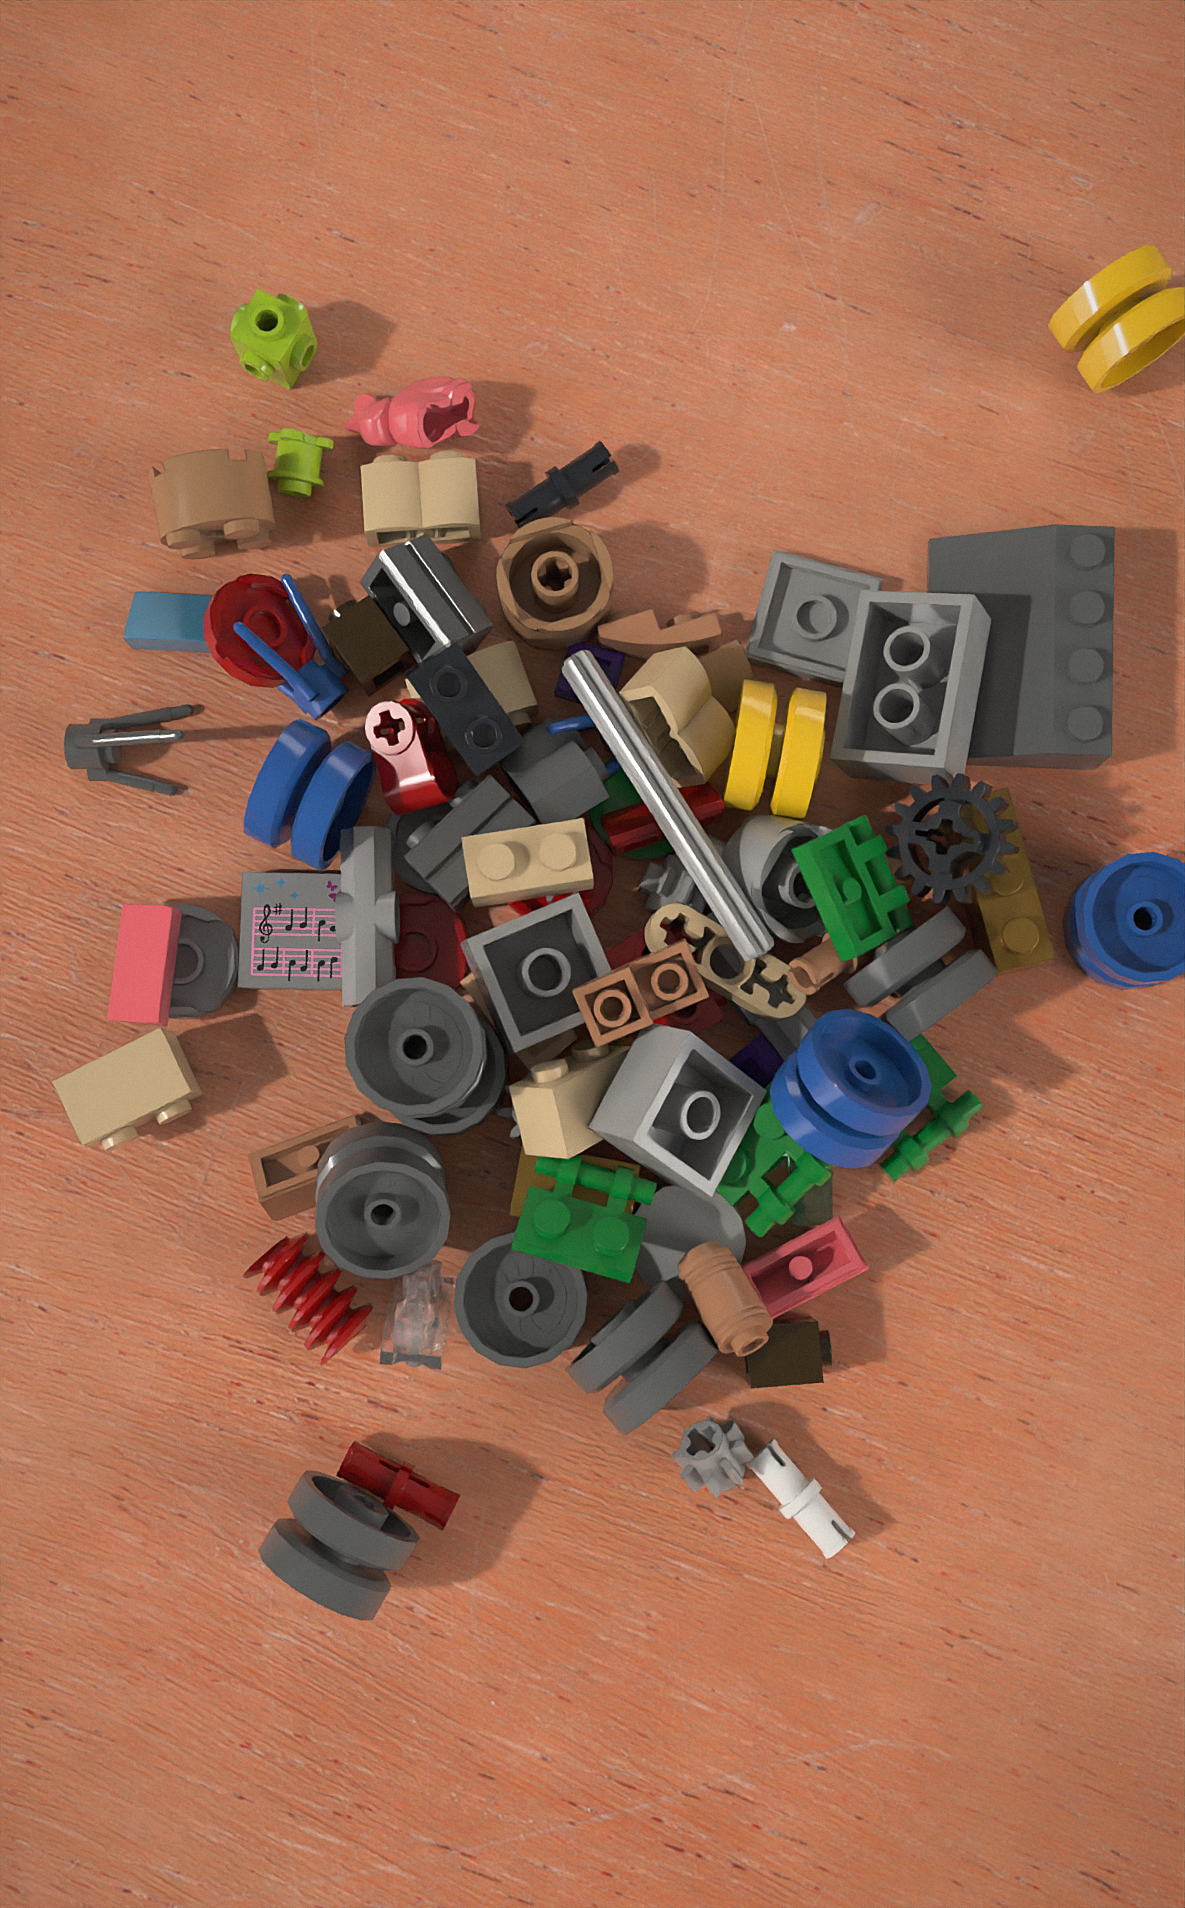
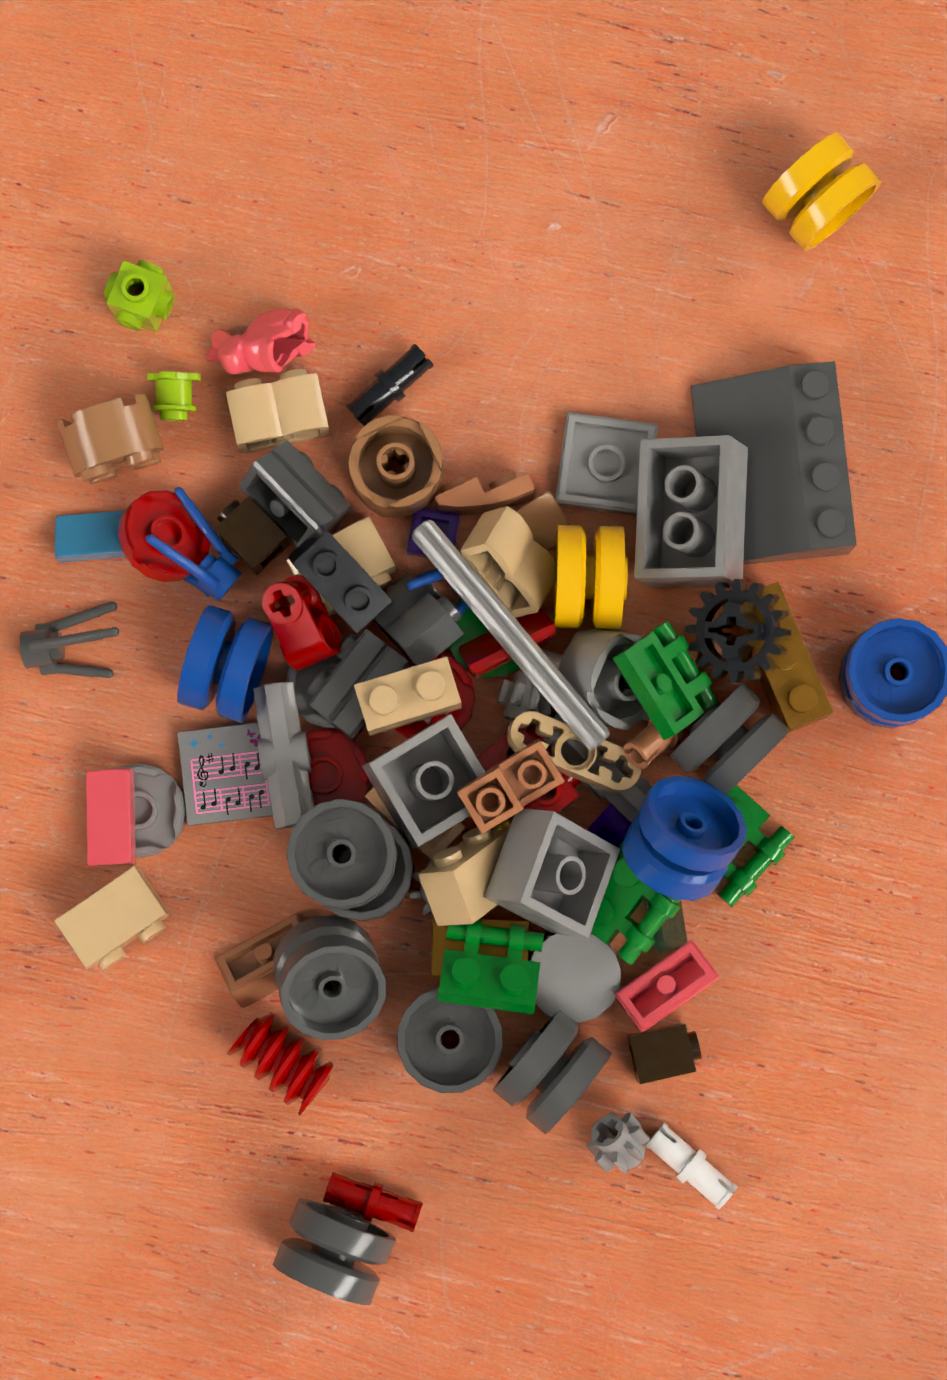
camera: 10 degrees left, 0 degrees up
(418, 1318) = (370, 1066): clear hips -> none
(724, 1299) = (609, 1016): nougat head -> none

